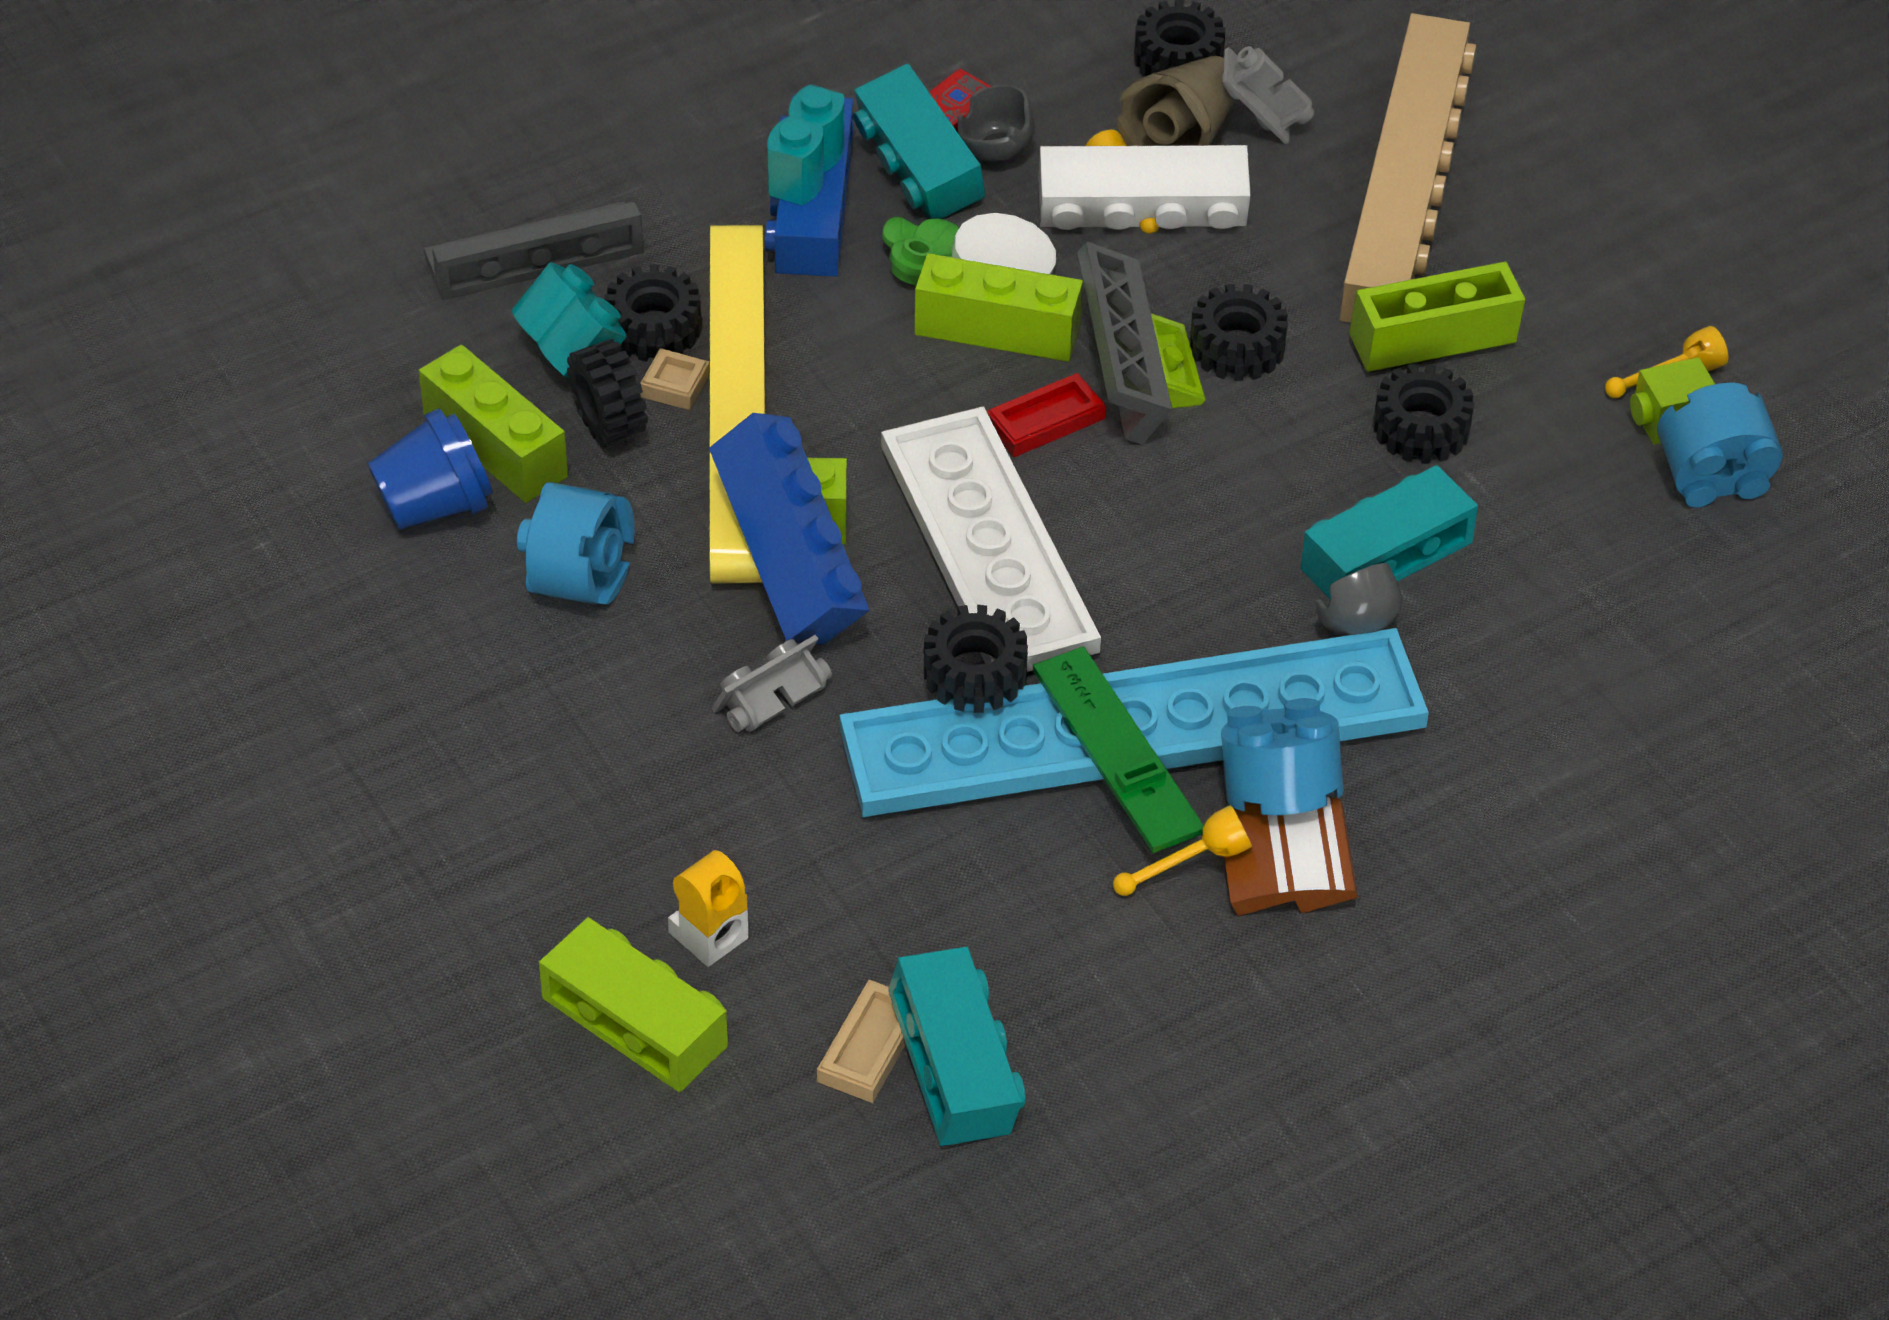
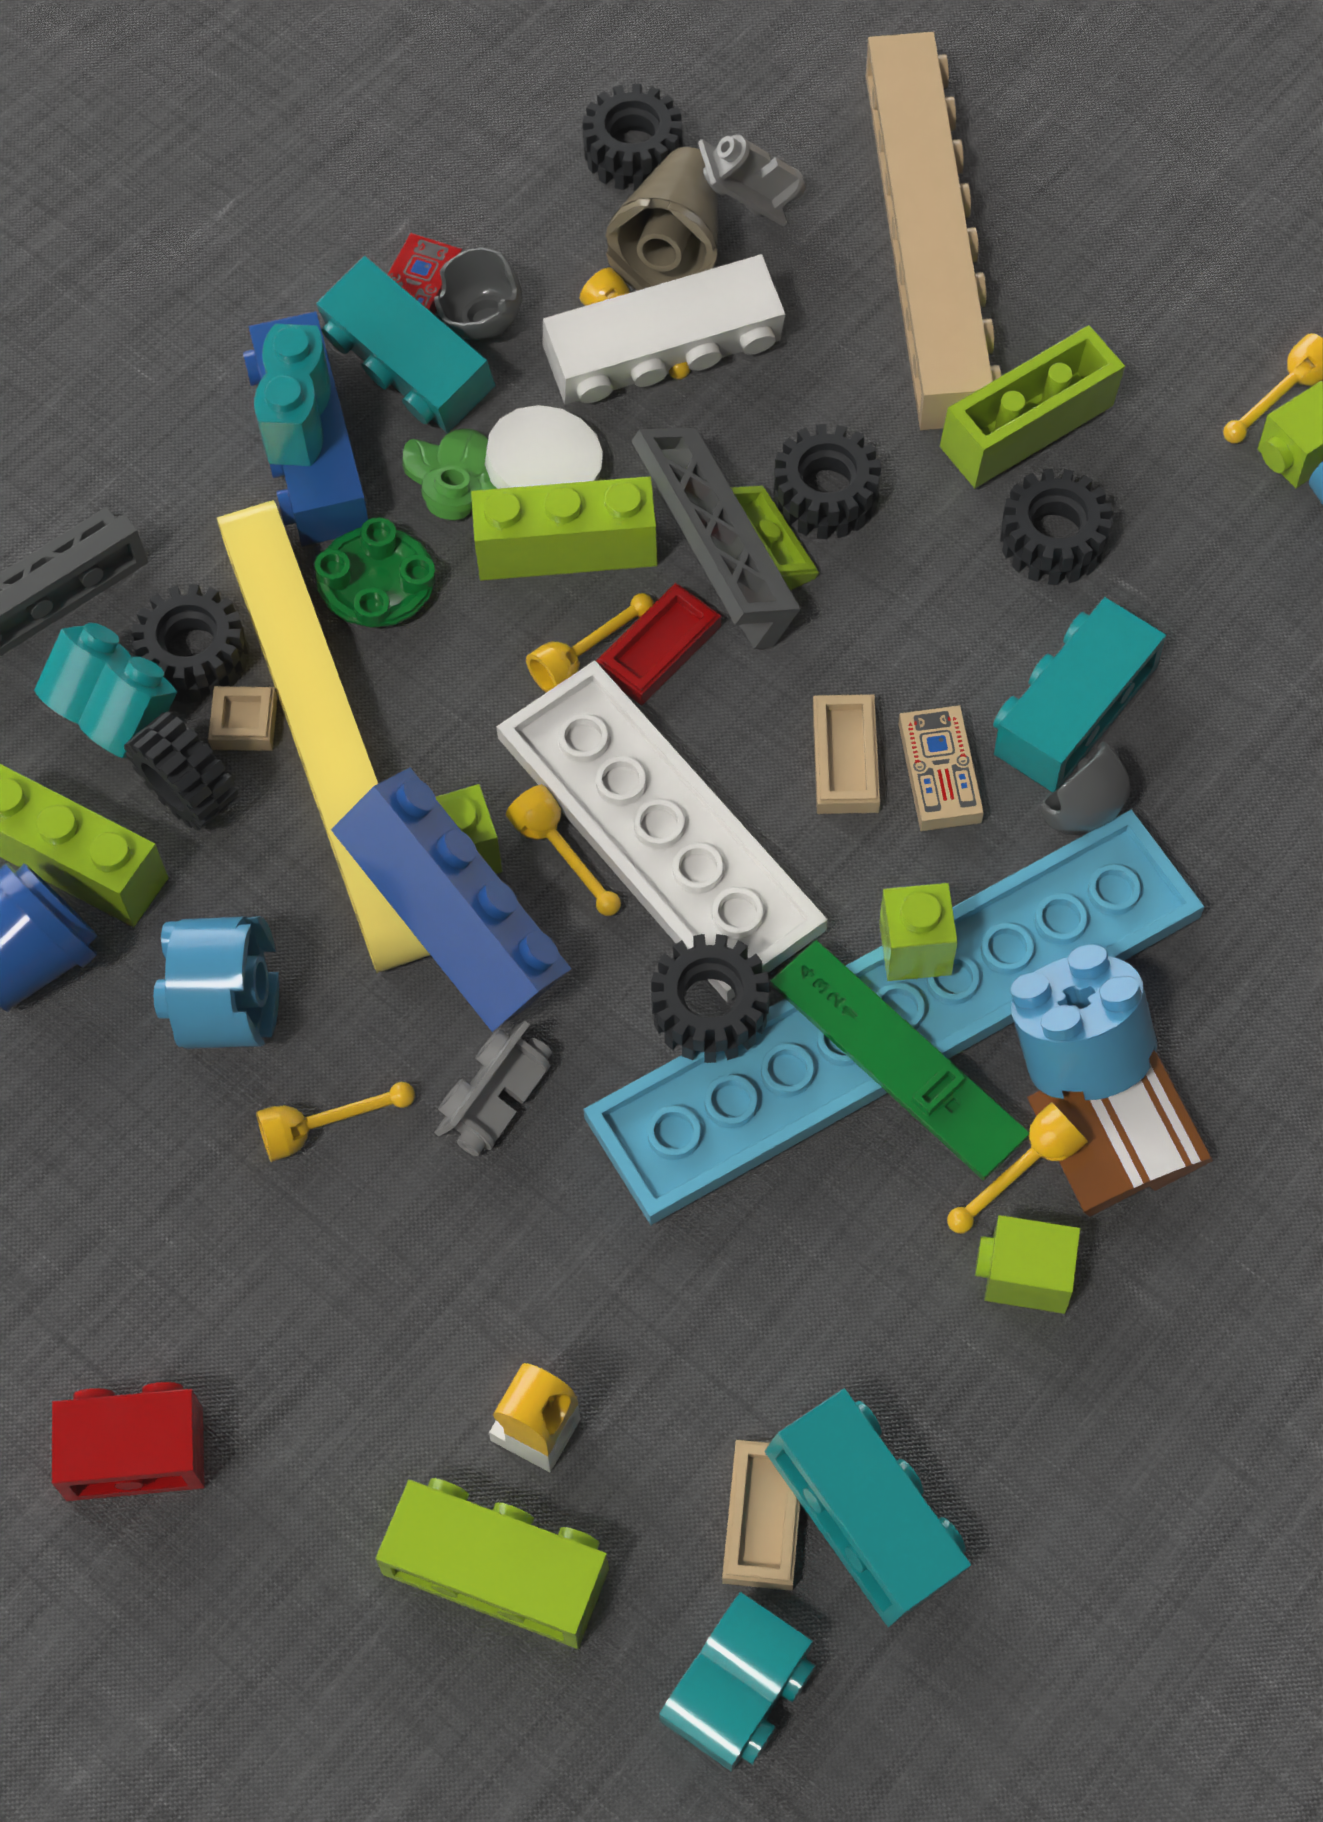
camera: 15 degrees left, 15 degrees up
(374, 843) = (127, 1442): none -> red brick
(592, 668) = (287, 1129): none -> yellow hinge
(797, 1139) = (737, 1683): none -> teal brick
(826, 303) = (375, 575): none -> green dish
(889, 508) = (537, 817): none -> yellow hinge
(952, 399) = (558, 661): none -> yellow hinge
(1167, 923) = (1029, 1263): none -> lime brick
(1168, 654) = (918, 931): none -> lime brick
(1171, 533) = (845, 754): none -> tan tile
(1247, 563) = (940, 768): none -> tan tile

